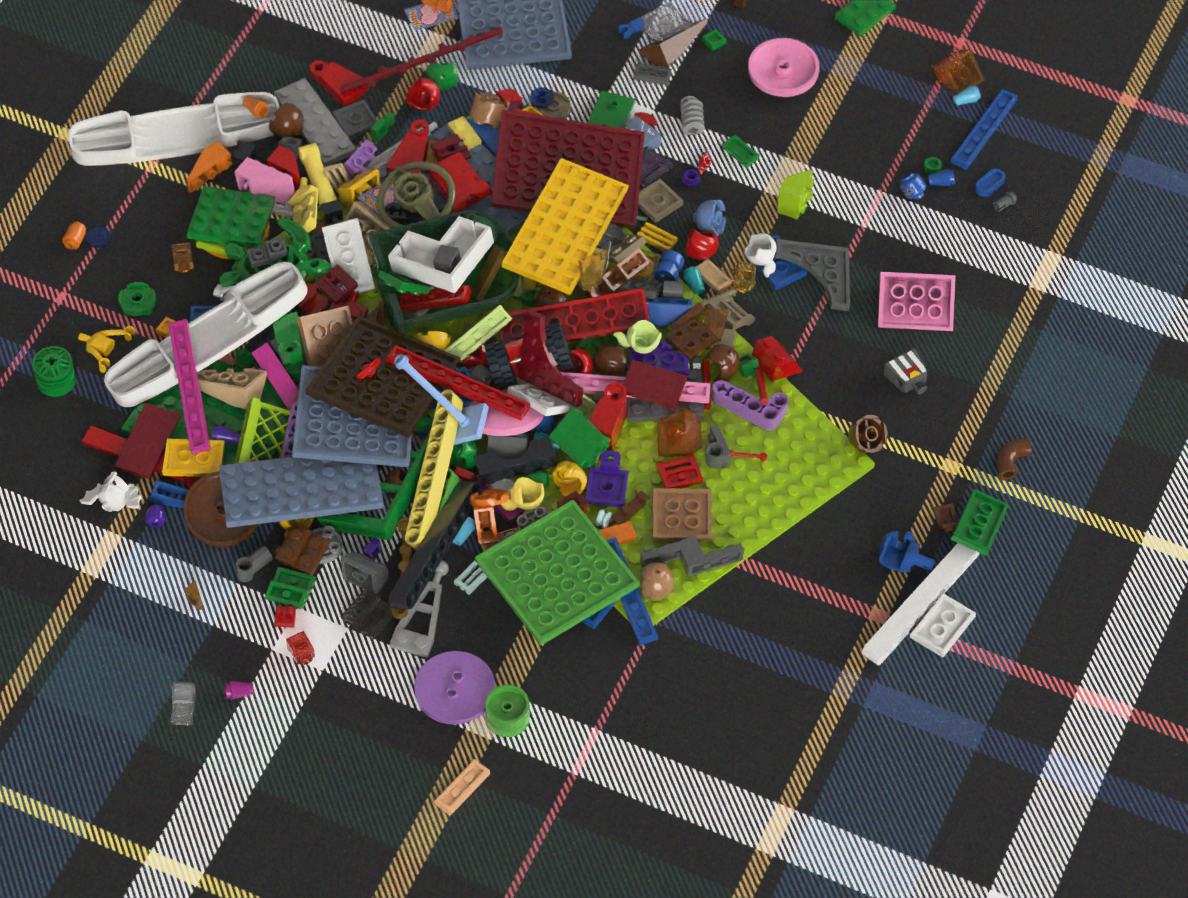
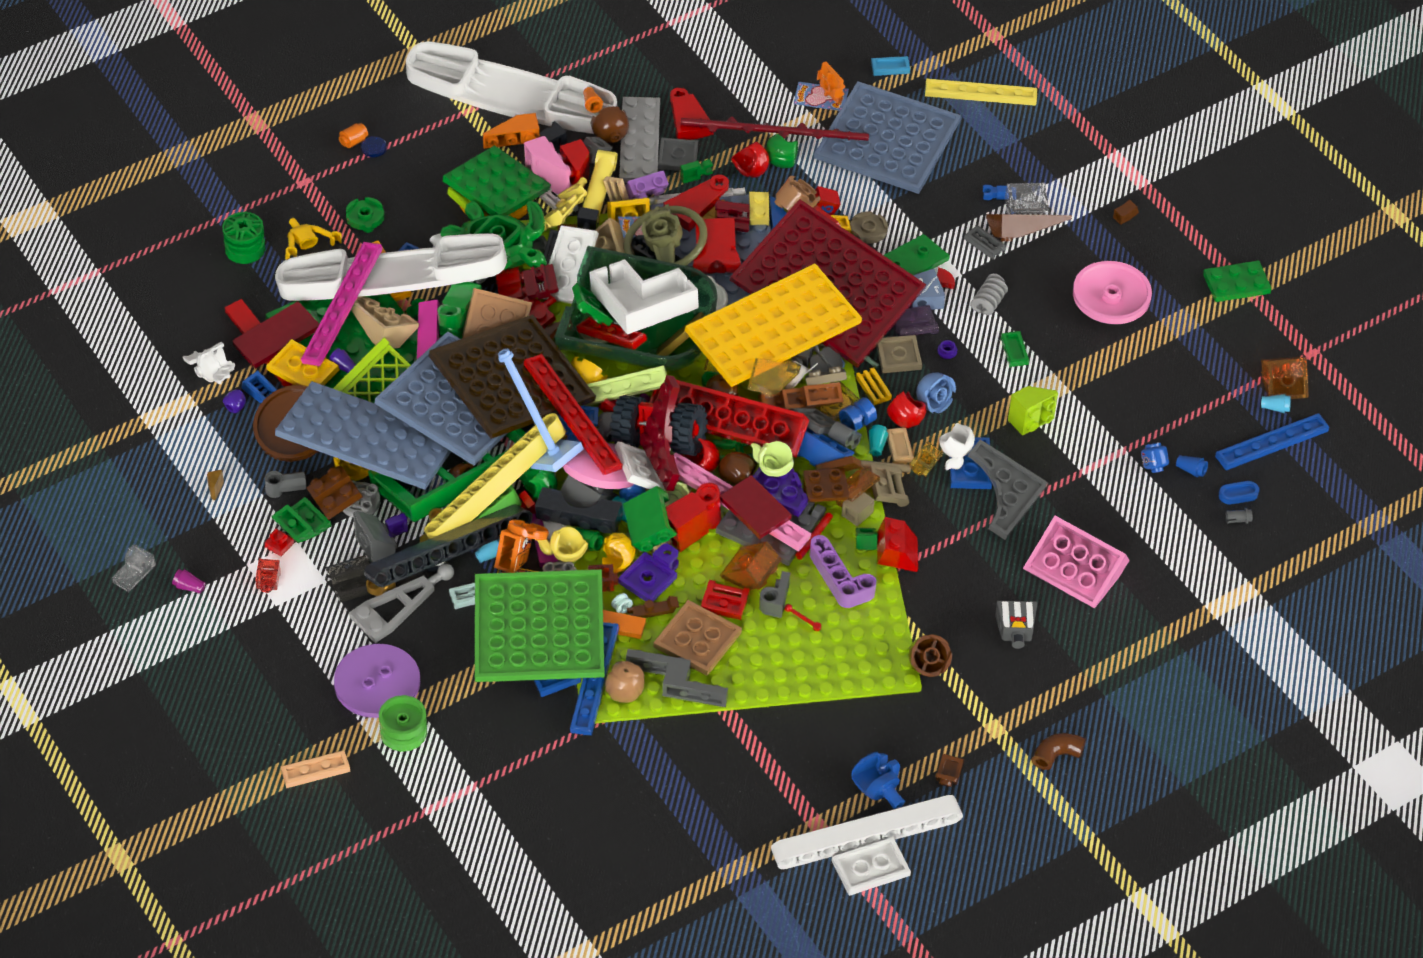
camera: 30 degrees right, 5 degrees down
(182, 261) = (429, 201): clear orange brick -> none
(269, 253) = (490, 223): dark grey slope -> none
(369, 369) = (495, 362): red piece -> none
(447, 259) = (638, 298): dark grey brick -> none
(541, 97) = (861, 213): clear blue piece -> none
(704, 162) = (971, 341): red piece -> none
(714, 40) = (1068, 239): green tile -> none
(726, 358) = (844, 521): reddish brown piece -> none
(761, 385) = (861, 561): red bar -> none
(932, 165) = (1193, 449): green tile -> none
(979, 522) = (976, 790): green plate -> none

